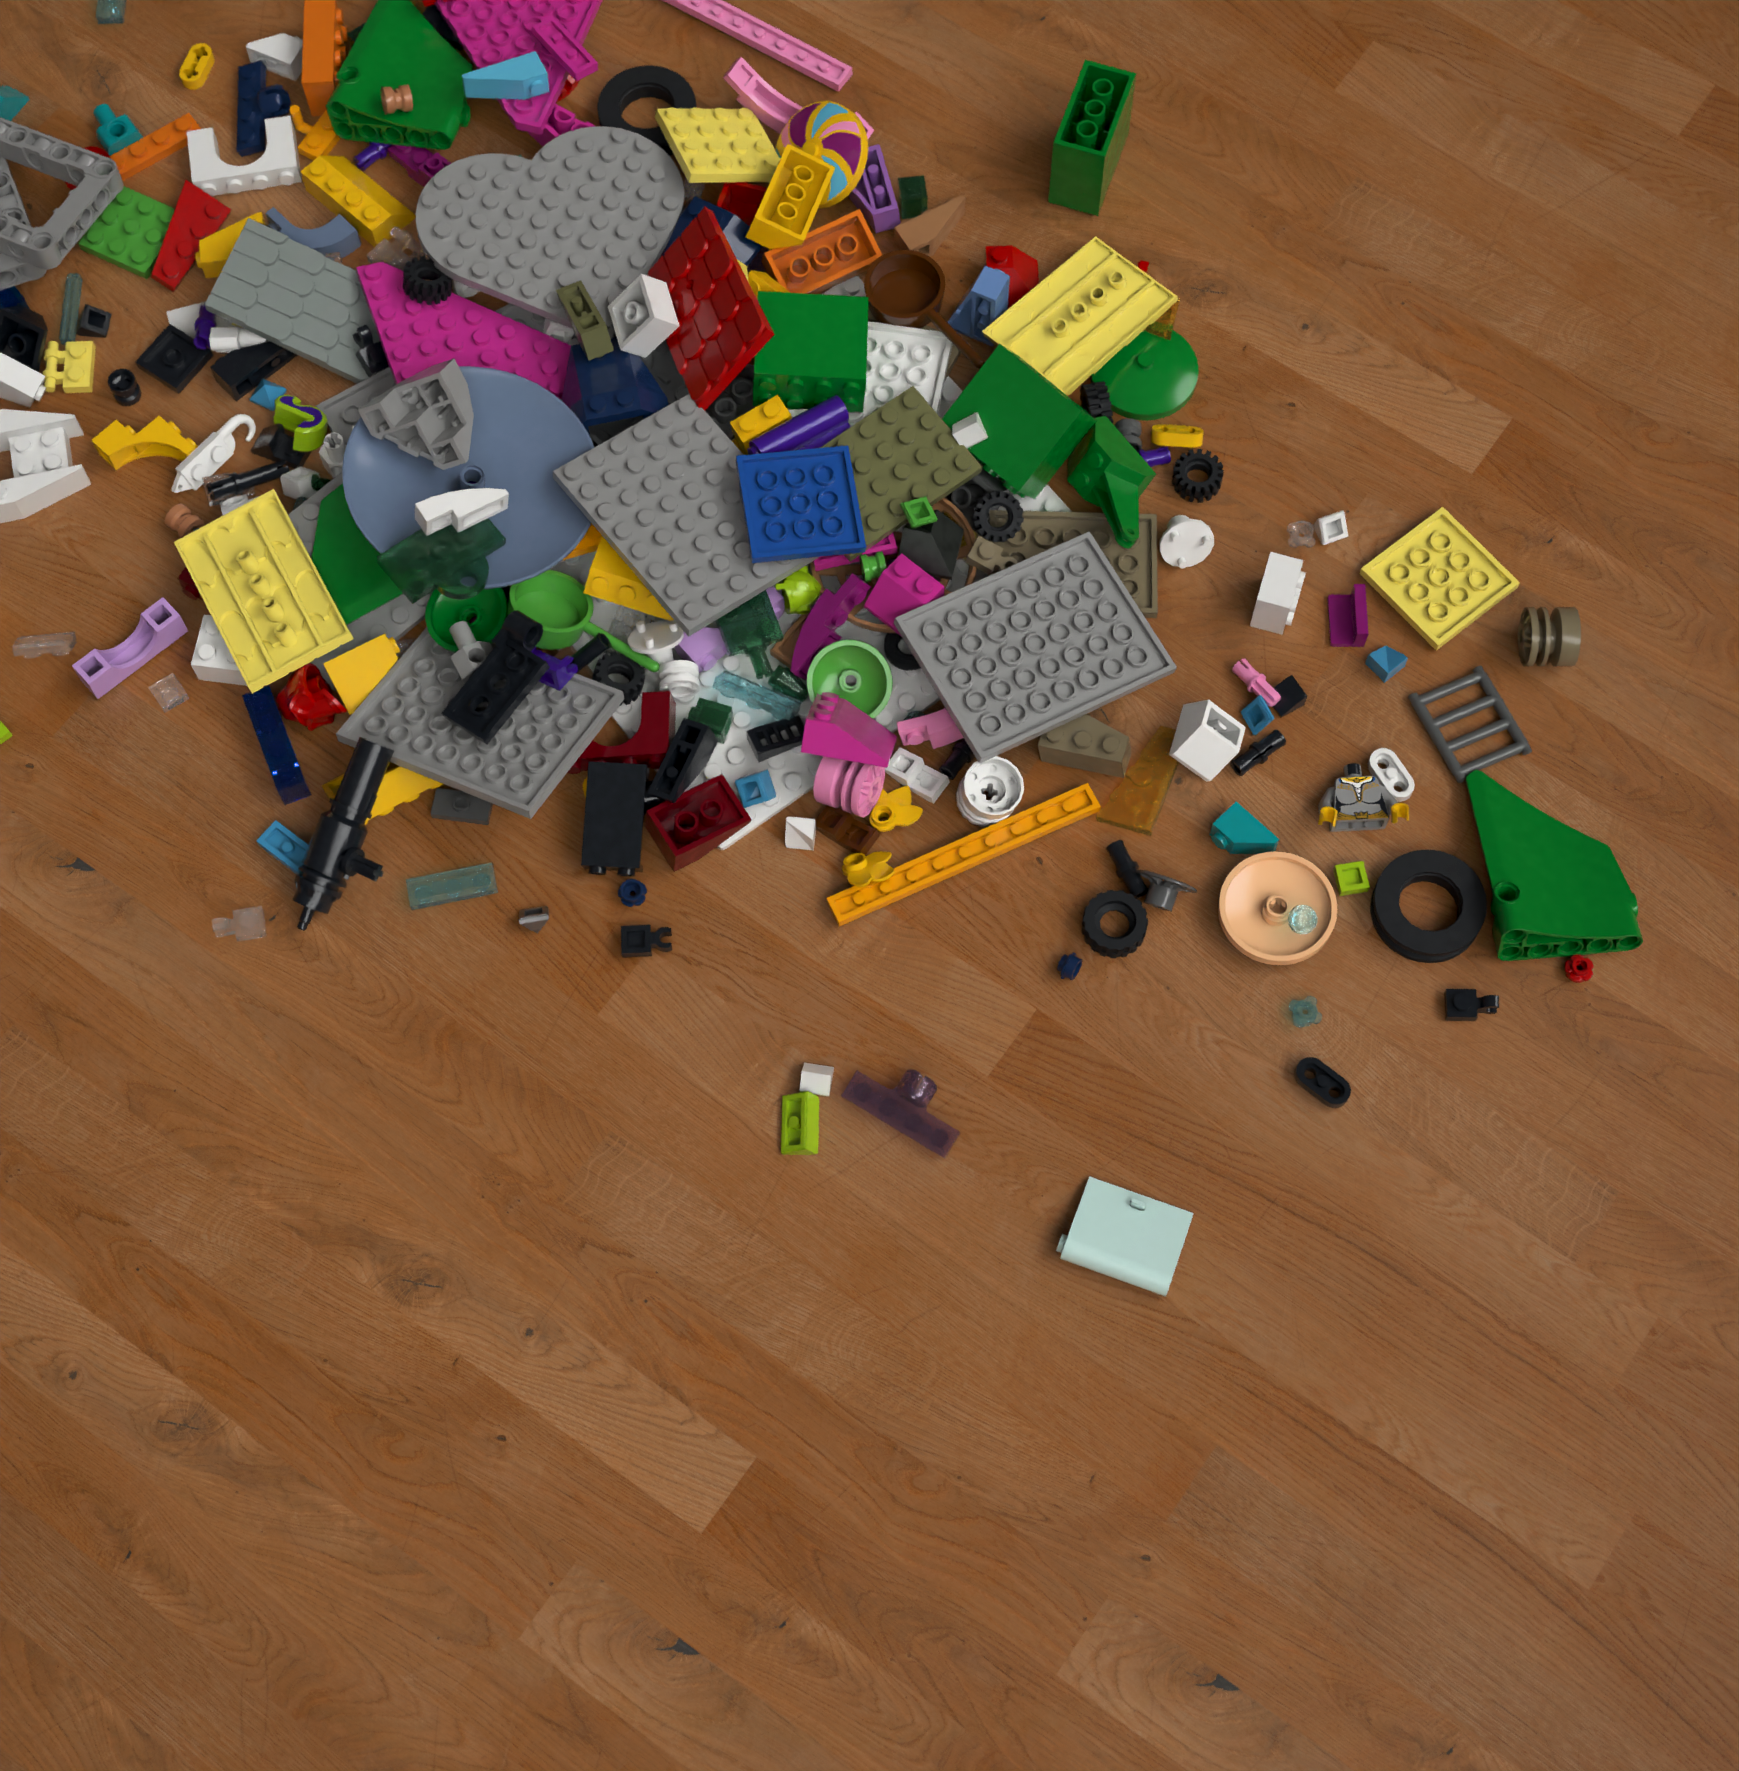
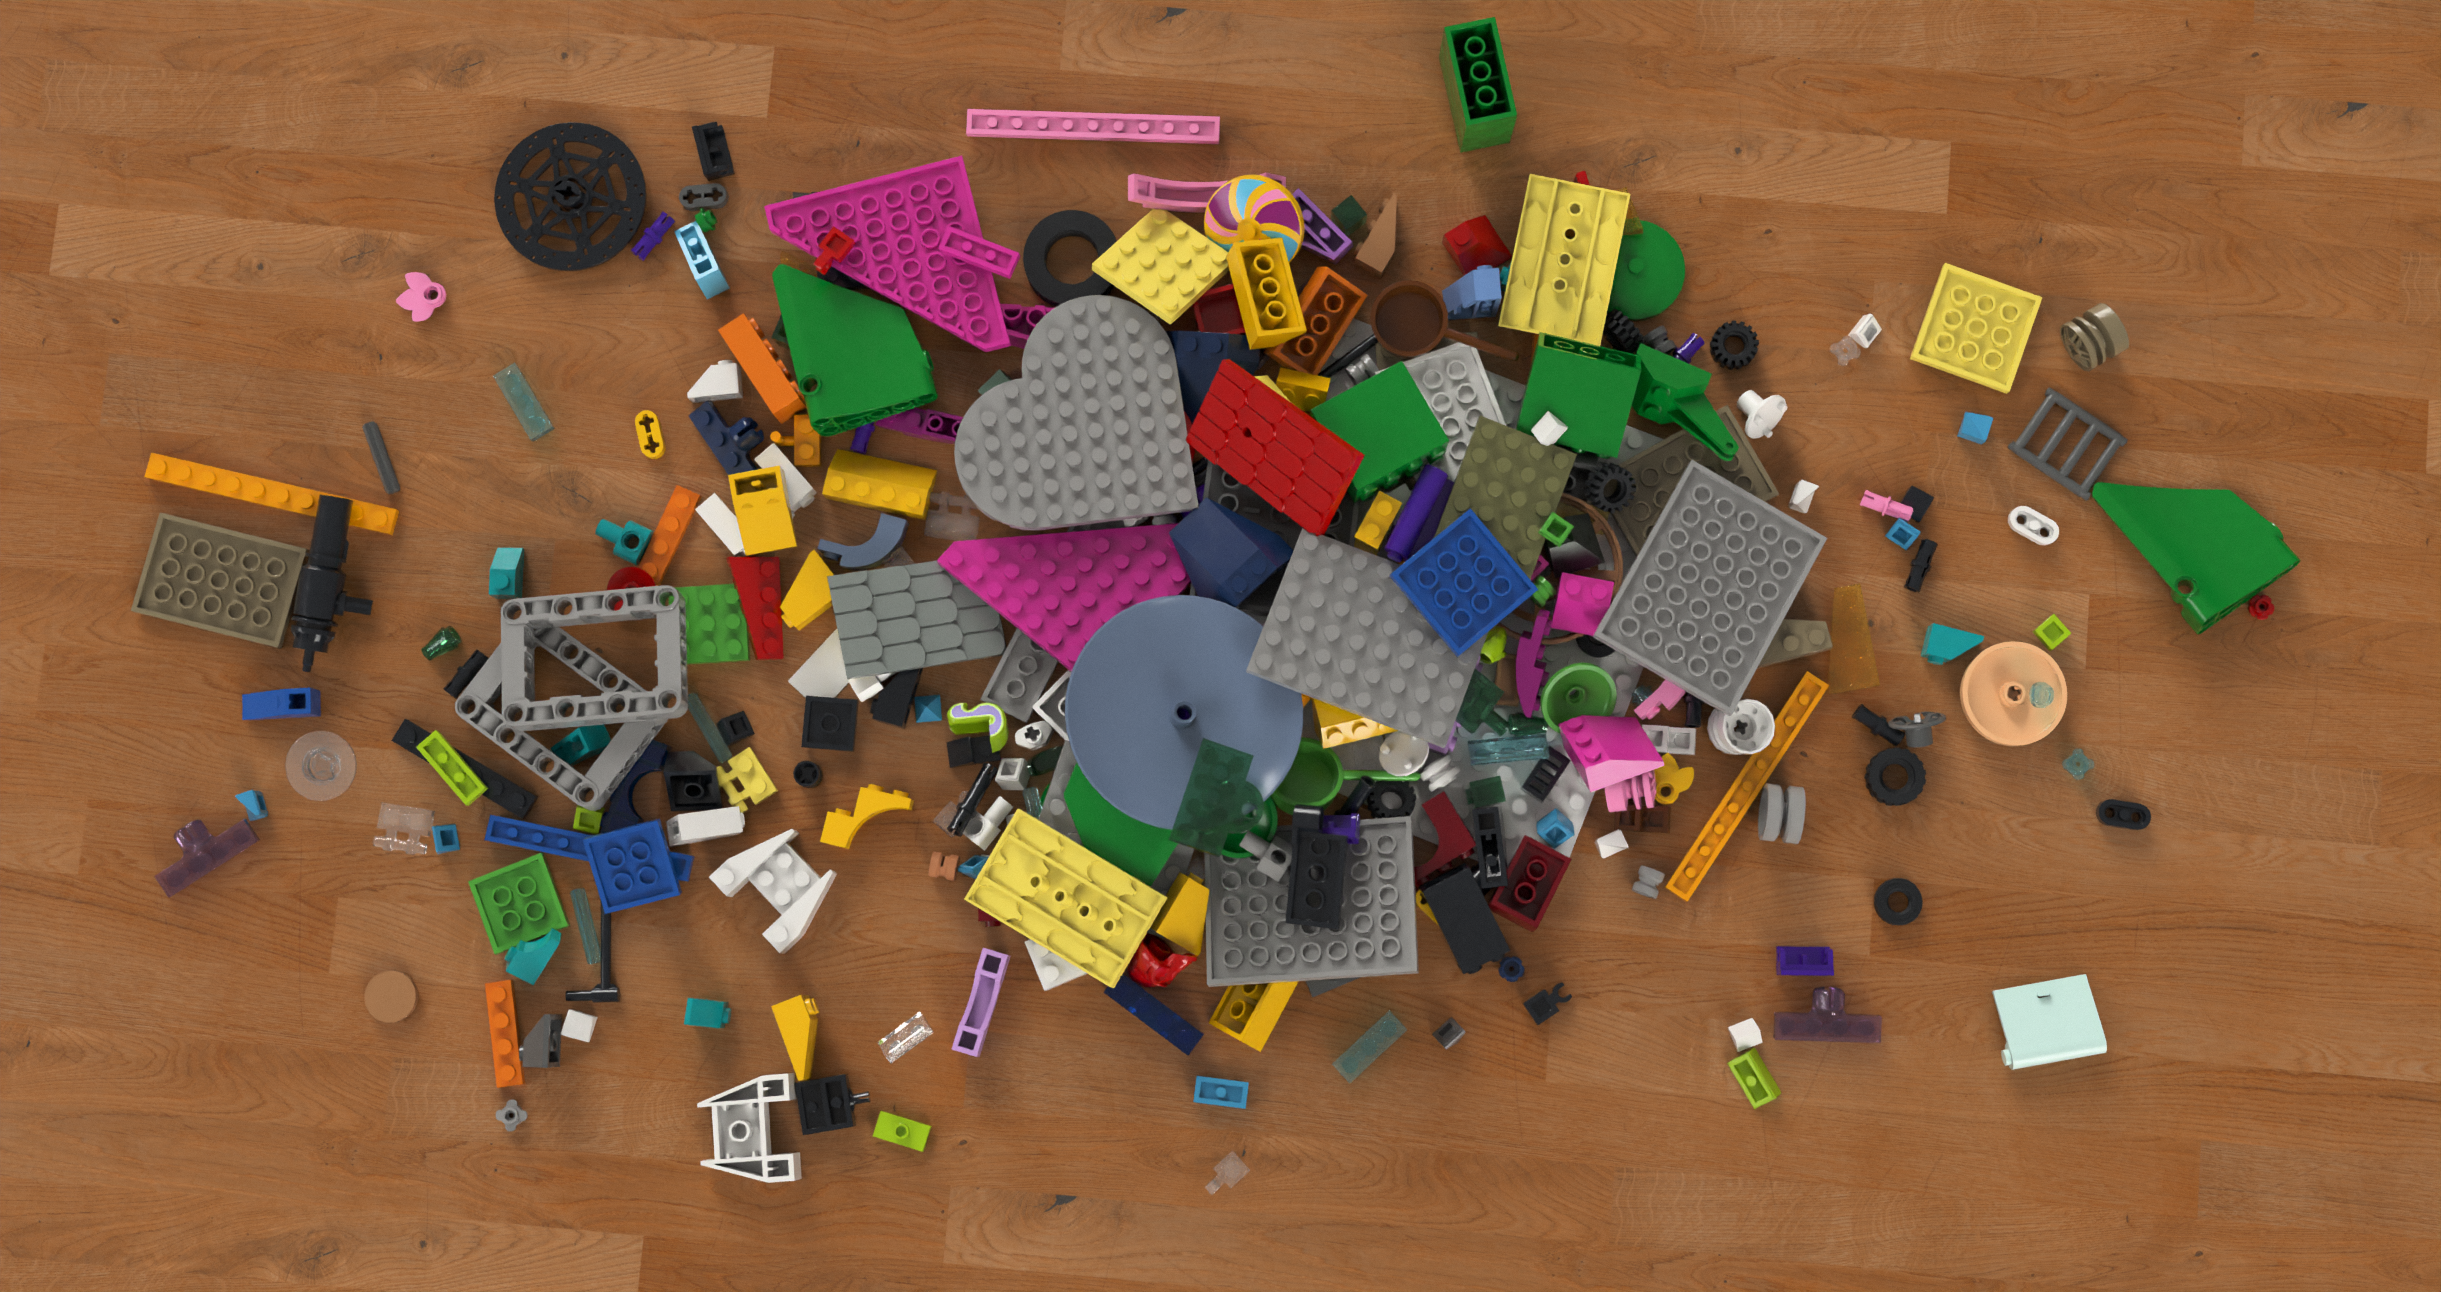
camera: 25 degrees left, 15 degrees up
(168, 692) = (1034, 1018): clear plate -> none
(203, 327) = (838, 681): dark purple pin -> none
(210, 454) = (924, 794): white plate -> none
(240, 151) = (763, 510): none -> yellow slope
(341, 832) = (1267, 1063): black piece -> none
(370, 354) = (996, 626): black plate -> none
(396, 99) = (871, 387): nougat wheel -> none
(416, 284) = (1009, 554): black tyre -> none
(426, 415) = (1120, 686): light grey brick -> none
(460, 508) = (1207, 758): white slope -> none
(511, 79) = (959, 311): medium azure slope -> none
(585, 320) = (1173, 509): olive slope -> none
(643, 316) = (1221, 479): white brick -> none
(813, 886) = (1648, 881): none -> light grey wheel
(863, 868) = (1685, 842): yellow plate -> none
(916, 1043) = (1804, 961): none -> dark purple hinge
(978, 888) = (1781, 813): none -> light grey wheel
(987, 556) = (1621, 526): dark tan plate -> none
(1050, 1022) = (1914, 901): none -> black tyre
(1069, 966) = (1881, 831): dark blue plate -> none
(1177, 435) = (1697, 318): yellow beam -> none
(1181, 633) = (1802, 496): none -> white slope
(1206, 739) = (1880, 583): white slope -> none
(1278, 593) = (1863, 421): white brick -> none
(1348, 618) = (1924, 404): magenta panel -> none
(1359, 803) = (2024, 566): torso -> none
(1446, 872) = (2149, 596): black tyre -> none
(1464, 1005) = (2193, 687): black plate -> none

